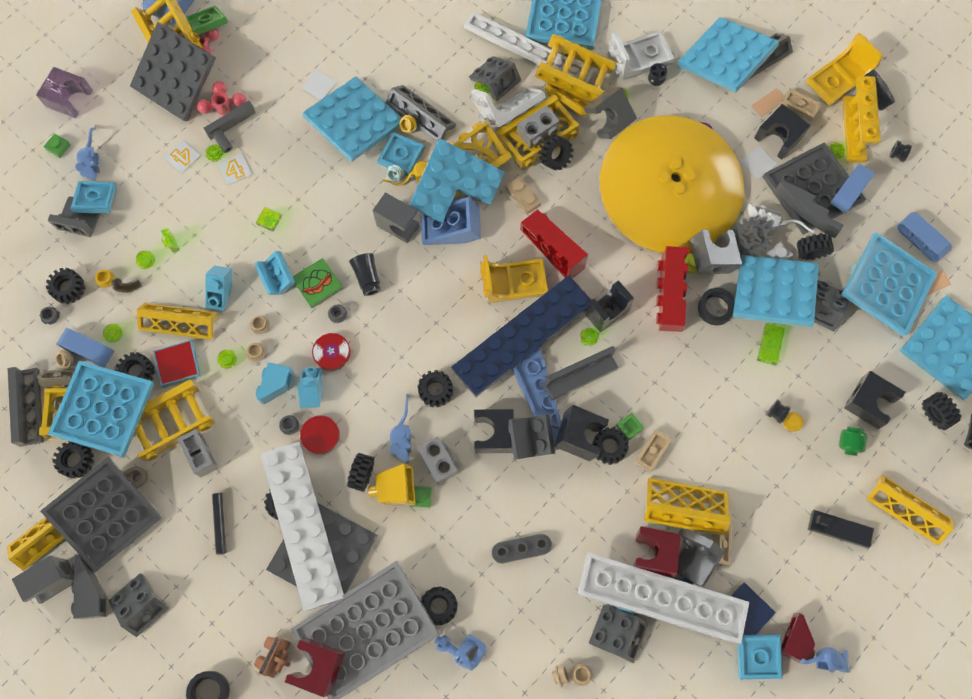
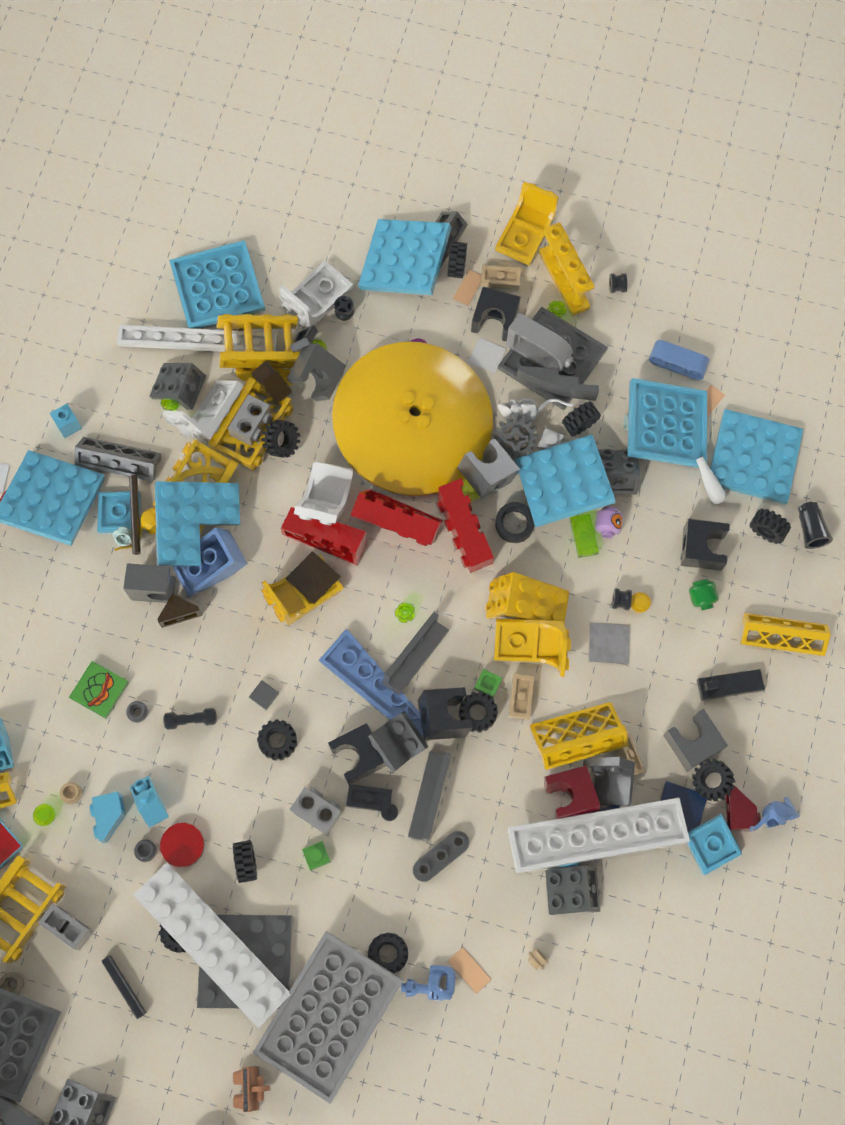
camera: 30 degrees left, 0 degrees up
(259, 324) = (60, 762): tan plate -> none
(268, 219) = (12, 647): clear neon green plate -> none
(275, 274) = (50, 701): medium azure bracket -> none
(325, 668) = (309, 1075): dark red piece -> none
(331, 351) = (150, 754): red tile -> none
(366, 273) = (147, 656): black plant -> none
(390, 344) = (172, 720): none -> black piece
(394, 486) = (286, 859): yellow torso -> none
(395, 66) = (65, 420): none -> medium azure brick
(401, 438) = (266, 806): medium blue animal -> none
(407, 250) = (177, 611): none -> dark brown slope
(408, 124) = (110, 476): yellow plate -> none
(412, 159) = (134, 507): none -> dark brown piece
(442, 348) = (264, 695): none -> dark grey tile
(488, 474) = (372, 799): none -> black hinge
(499, 654) = (469, 970): none -> light nougat sticker
(521, 336) = (338, 644): dark blue plate -> none
(523, 195) = (268, 497): tan plate -> none
(527, 273) = (313, 577): none -> dark brown sticker
(536, 494) = (429, 796): none -> dark grey fence
(570, 105) = (271, 382): none -> dark brown slope
(571, 211) = (325, 494): none -> white bracket
(581, 674) = (556, 948): tan plate -> none
(613, 82) = (303, 338): none -> black tile
(617, 299) = (415, 562): black piece -> none
(619, 256) = (396, 516): none -> red wedge
(684, 410) = (533, 642): none -> yellow bracket
(697, 374) = (525, 599): none -> yellow bracket
(749, 443) = (609, 643): none -> flat silver sticker
(770, 74) = (457, 259): none -> black tyre
(787, 614) = (713, 767): none -> black tyre
(793, 570) = (694, 752): none -> dark grey piece
(798, 342) = (609, 522): none -> lavender head
(808, 168) = (539, 343): none -> light grey window
(852, 188) = (589, 343): medium blue beam -> none
(884, 95) = (577, 233): black wheel -> none
(904, 352) = (711, 483): none -> white piece

